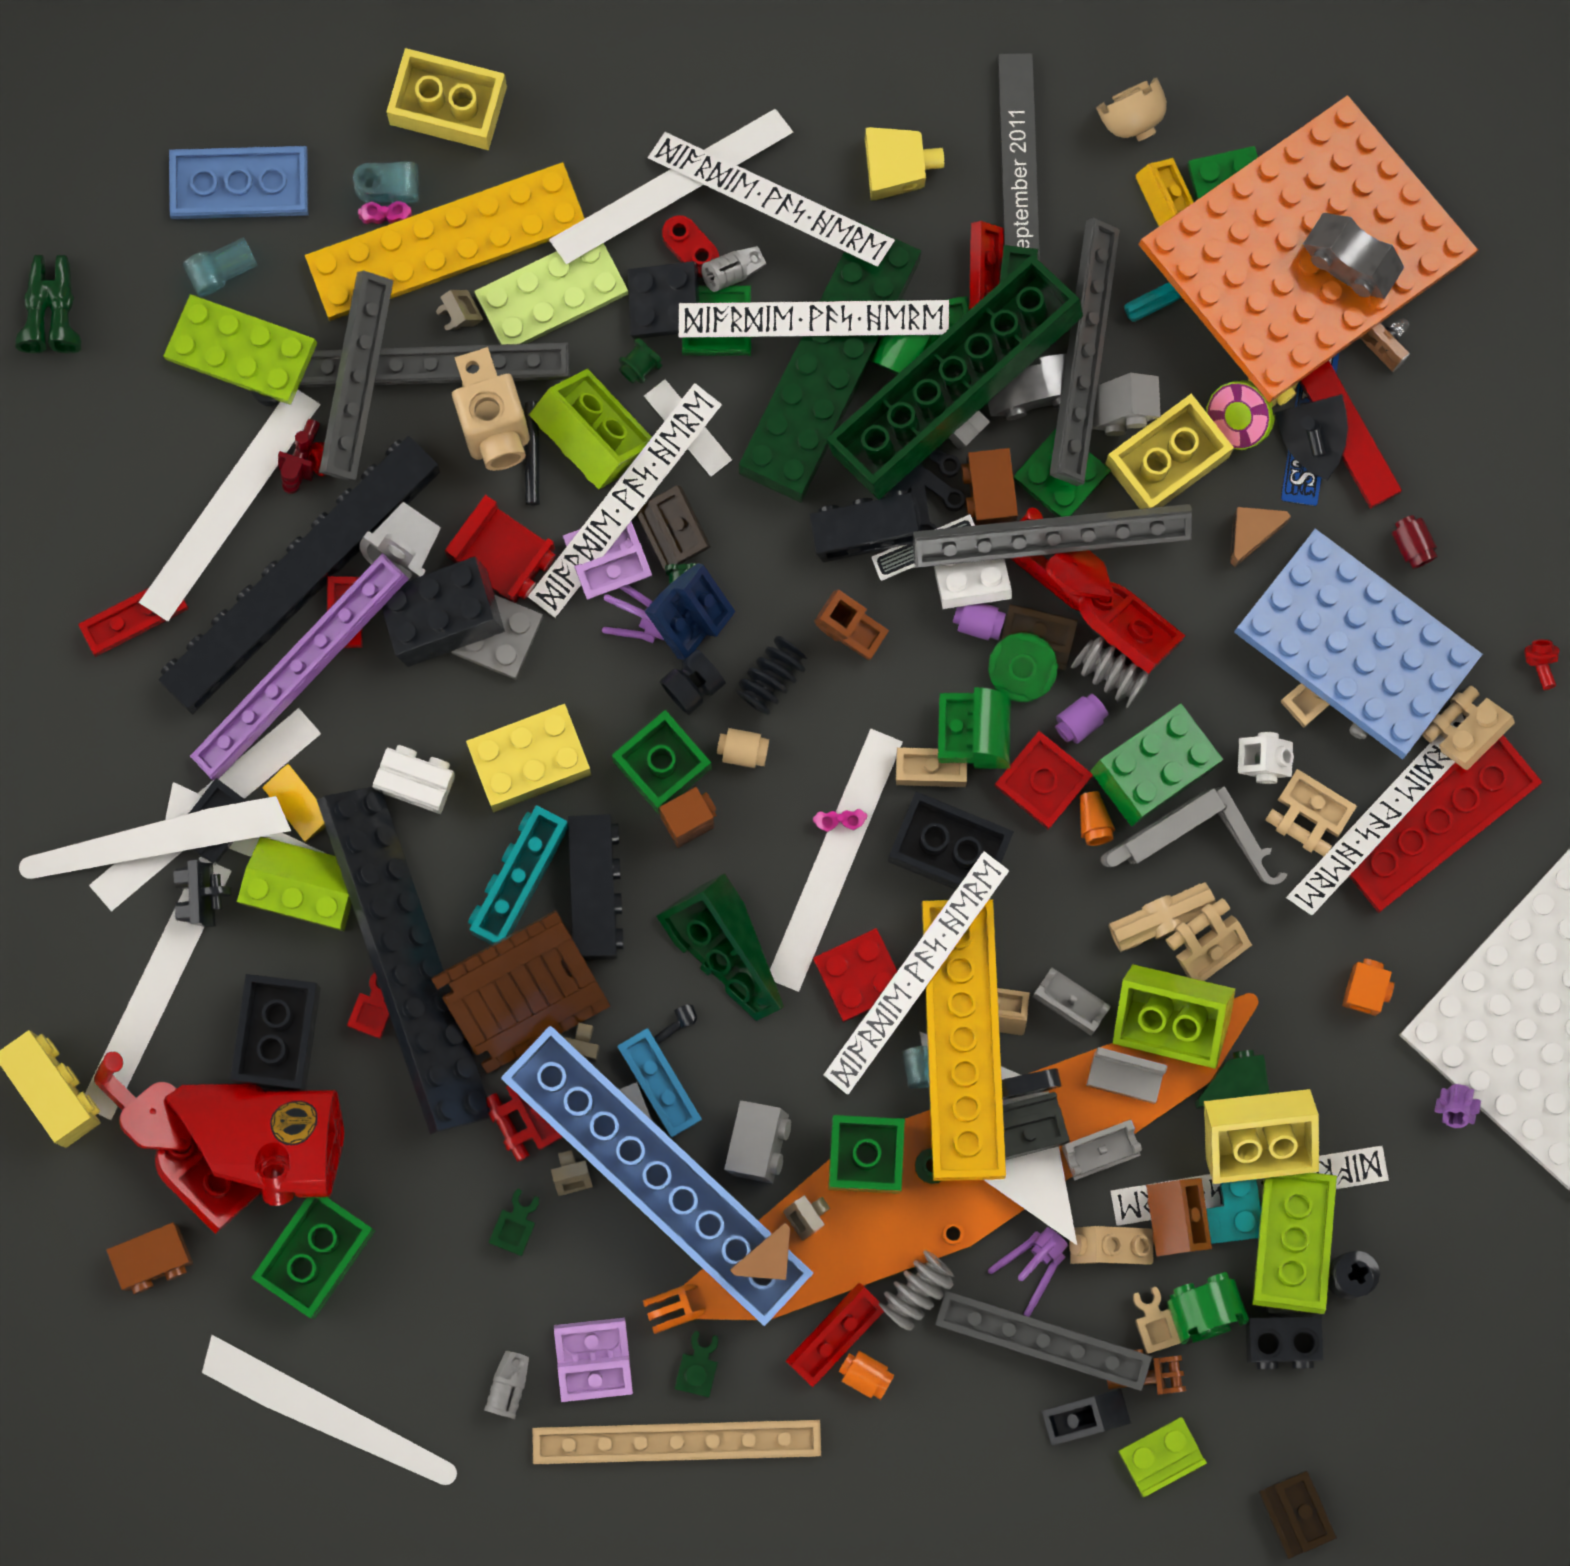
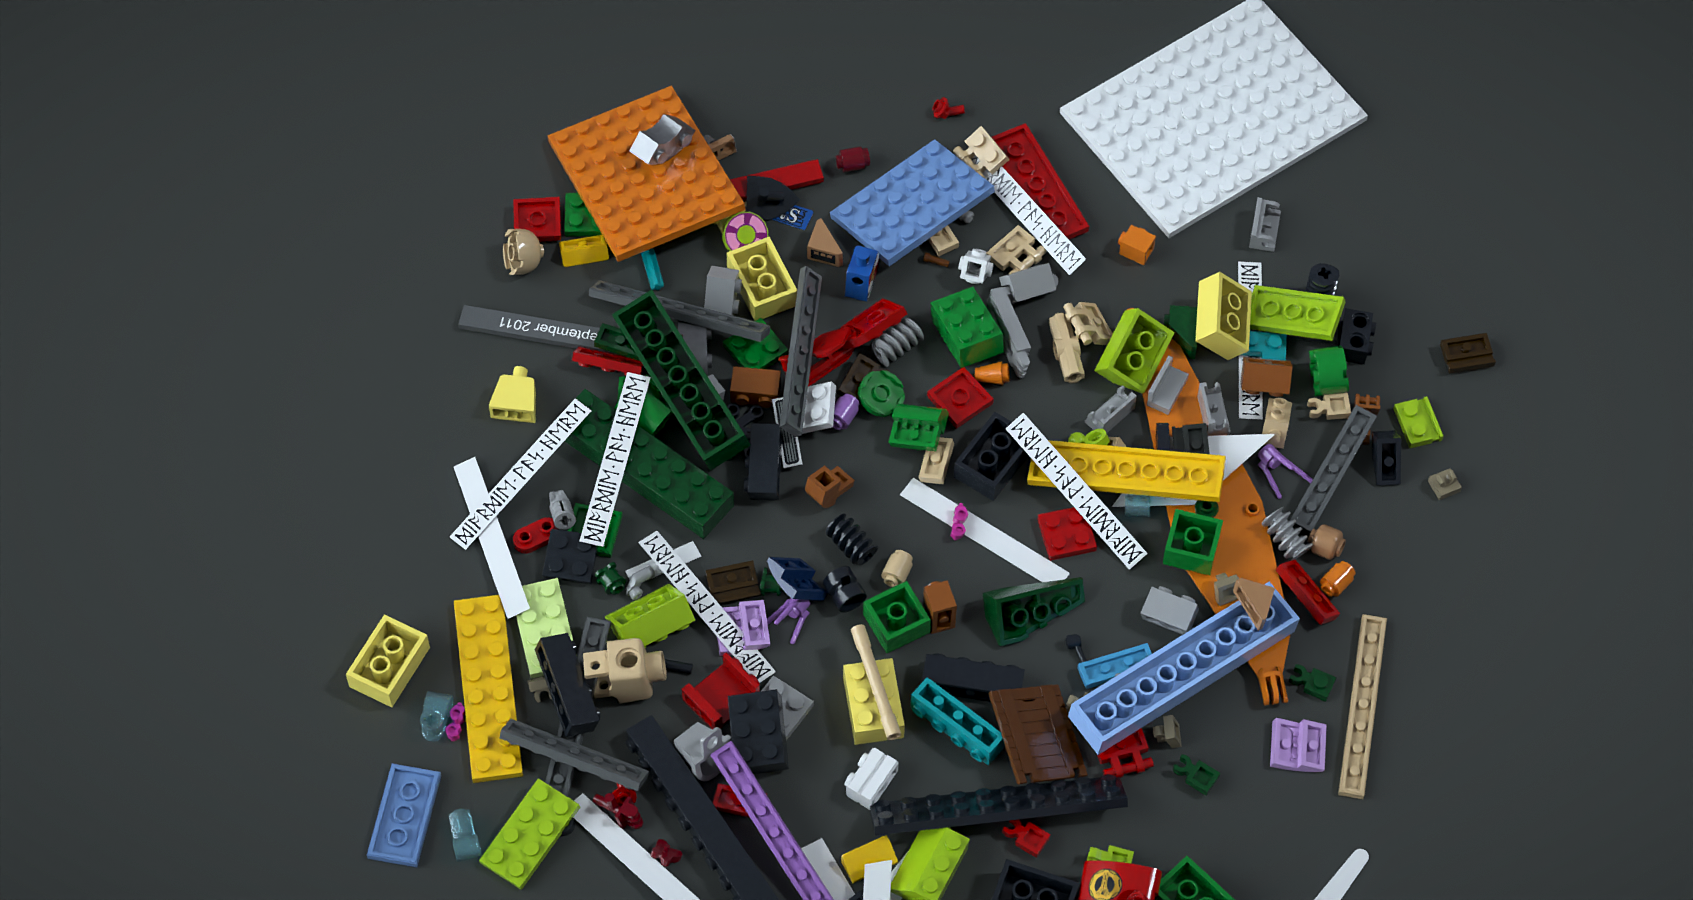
camera: 75 degrees left, 20 degrees down
(250, 531) = (665, 853): none -> dark red piece
(361, 1135) = (1113, 854): none -> lime plate
(453, 336) = (567, 684): none -> black brick
(508, 1385) = (1308, 800): light grey hinge -> none
(590, 724) = (887, 716): none -> tan piece
(646, 396) = (633, 587): none -> light grey arm
(922, 1350) = (1327, 542): none -> medium nougat head
(1012, 985) = (1096, 437): none -> lime plate
(1065, 1510) = (1444, 484): none -> dark tan tile
(1081, 719) = (924, 367): medium lavender brick -> none
(1200, 118) = (539, 217): none -> red plate
(1215, 595) = (865, 266): none -> blue torso
(1257, 840) = (1030, 282): none -> light grey panel
(1273, 697) = (933, 259): none -> reddish brown piece
(1450, 1175) = (1265, 225): none -> light grey hinge
(1457, 1106) = (1222, 210): medium lavender gear -> none

